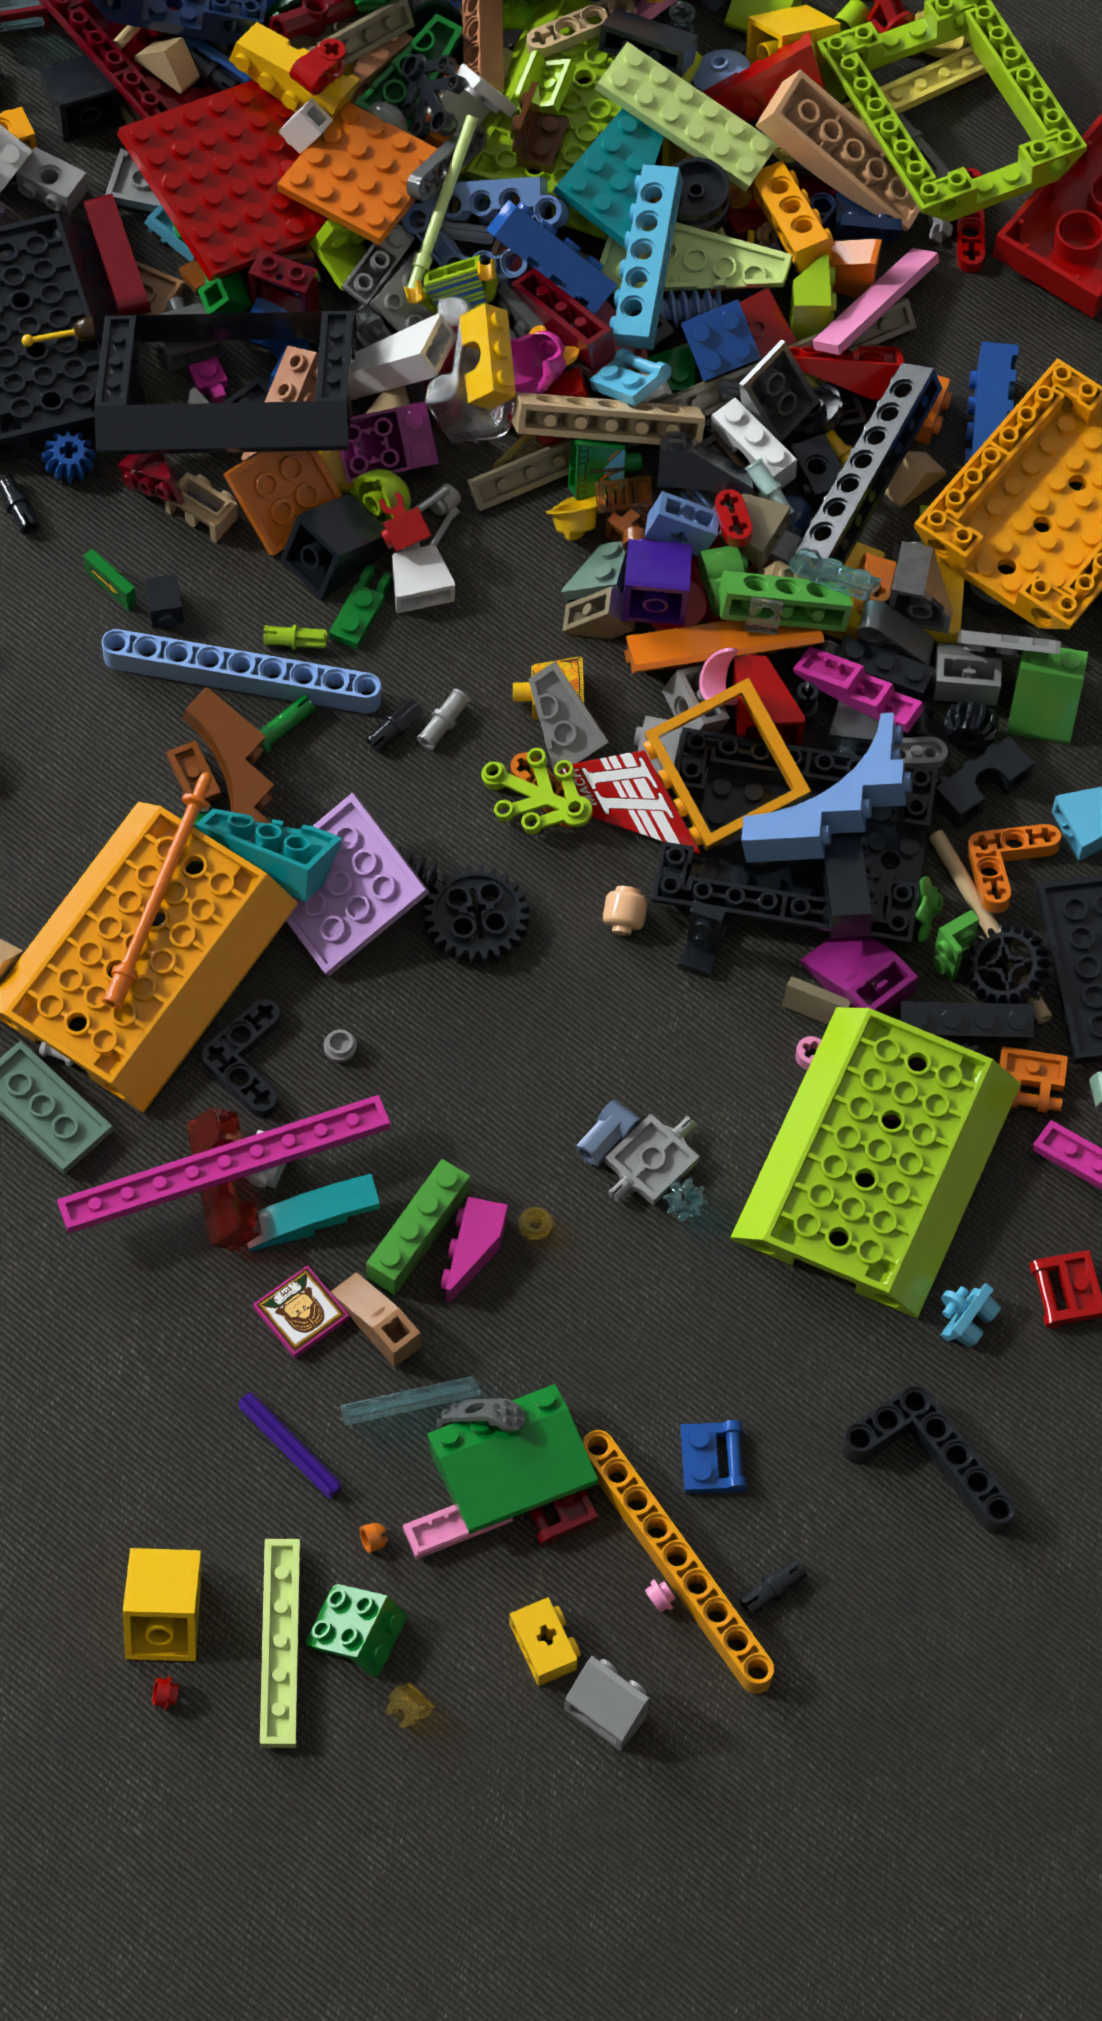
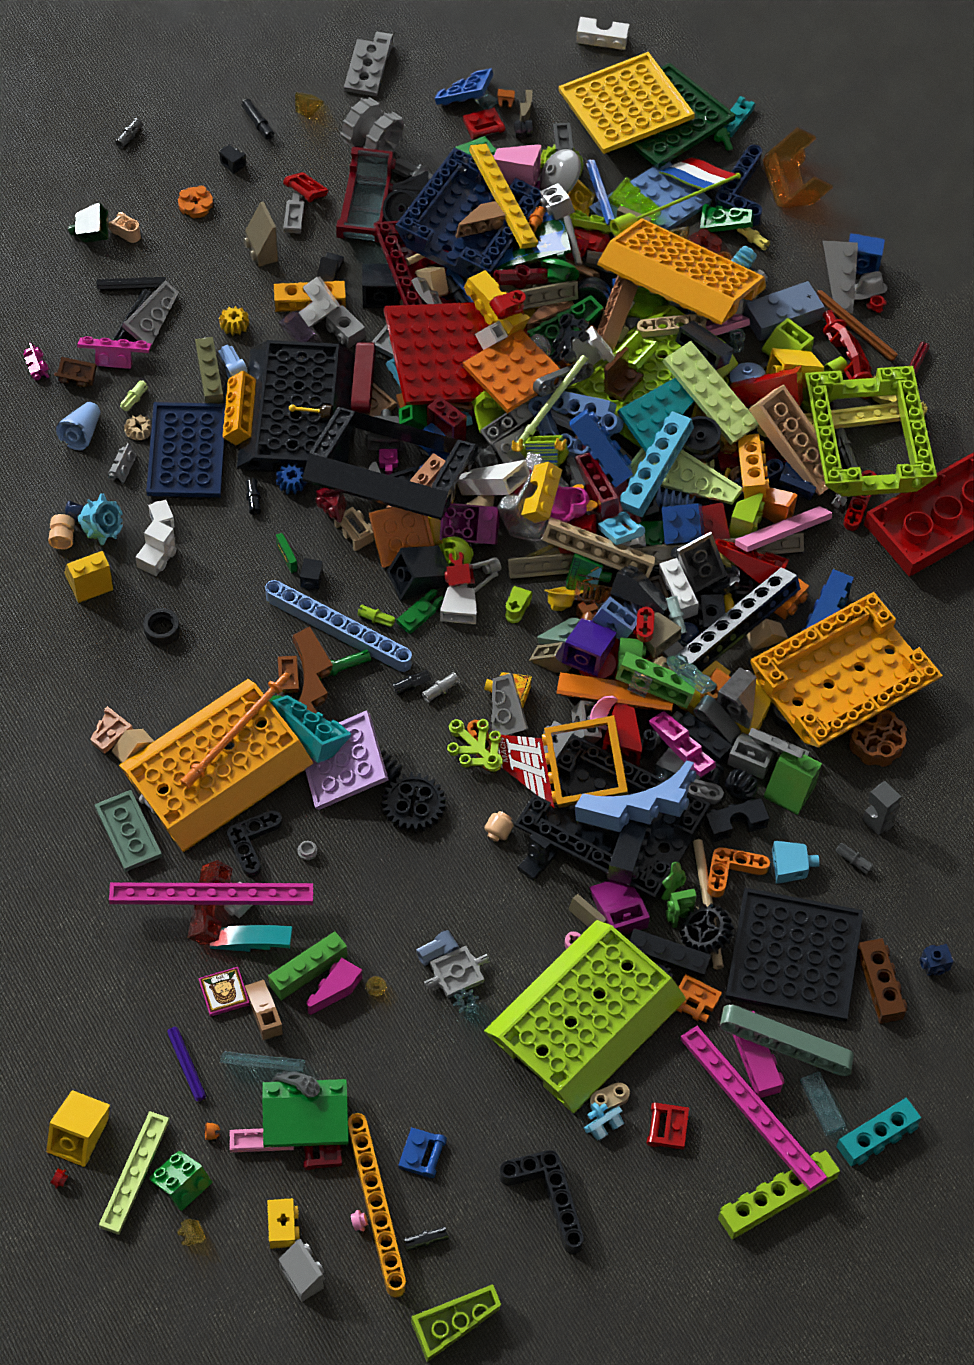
camera: 20 degrees right, 5 degrees down
(177, 92) = (425, 293): none -> light grey slope
(509, 548) = (517, 604): none -> lime piece
(861, 1705) = (452, 1320): none -> lime wedge
(963, 1272) = (610, 1096): none -> tan plate

